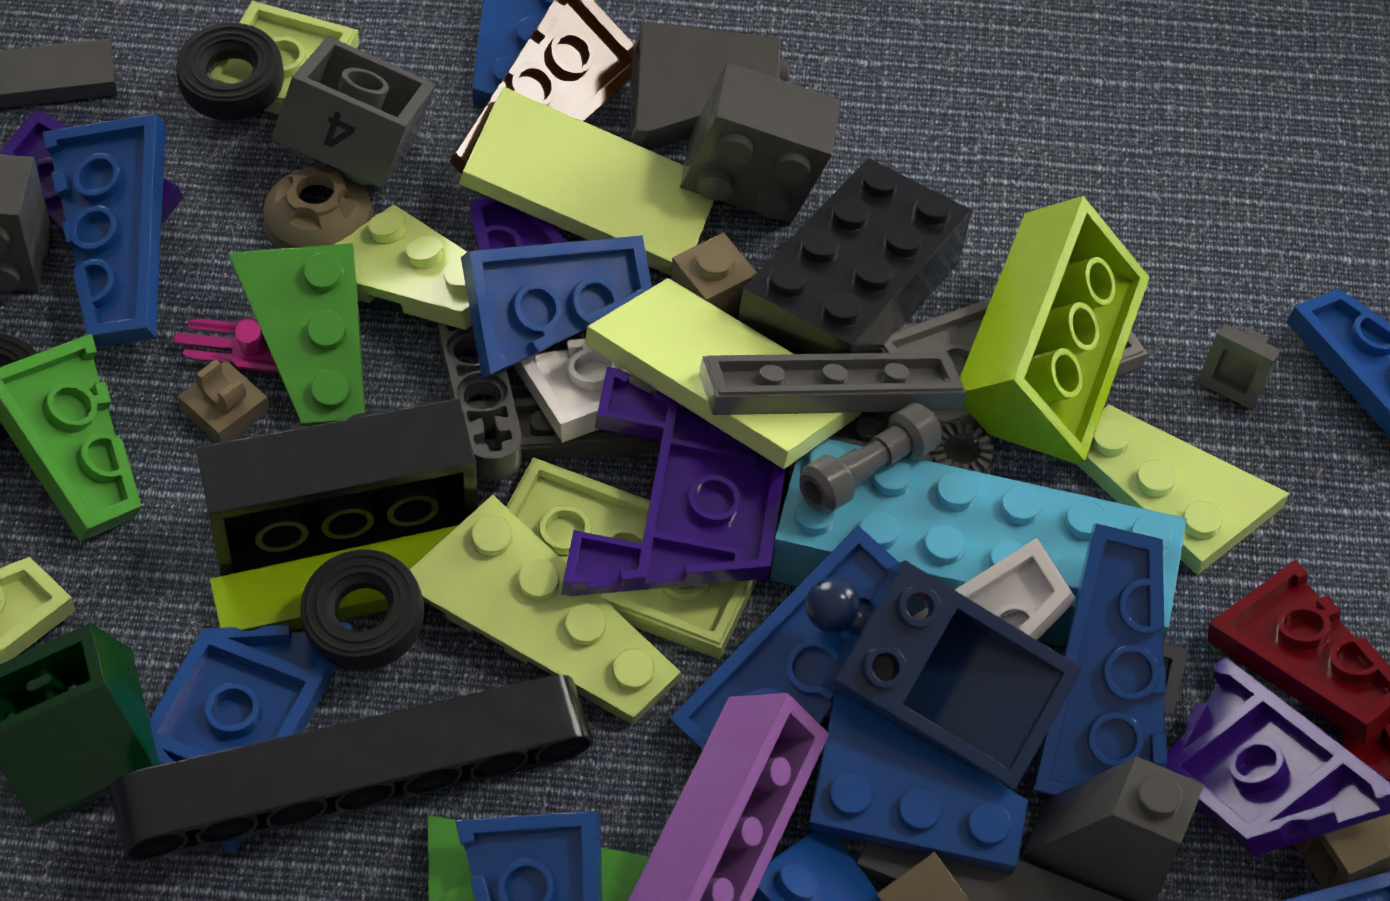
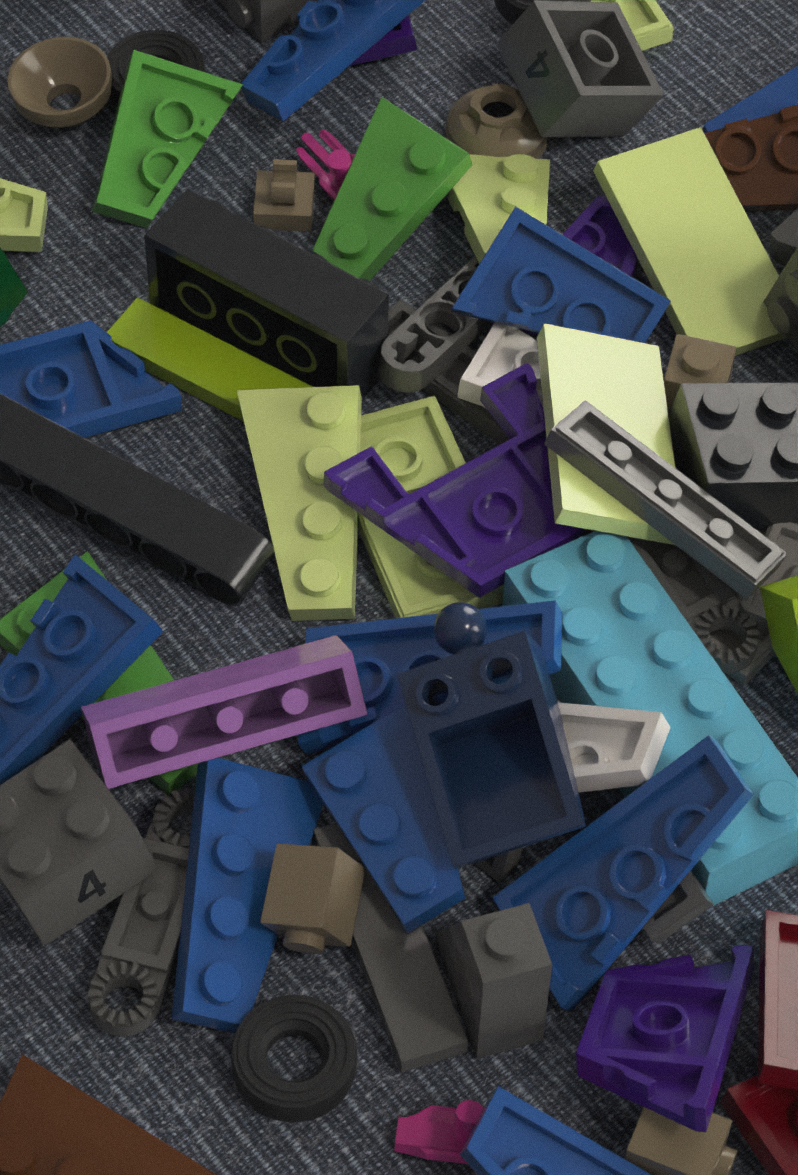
camera: 50 degrees right, 0 degrees up
(362, 648) = (197, 416): black tyre -> none
(831, 480) = (680, 578): dark grey piece -> none

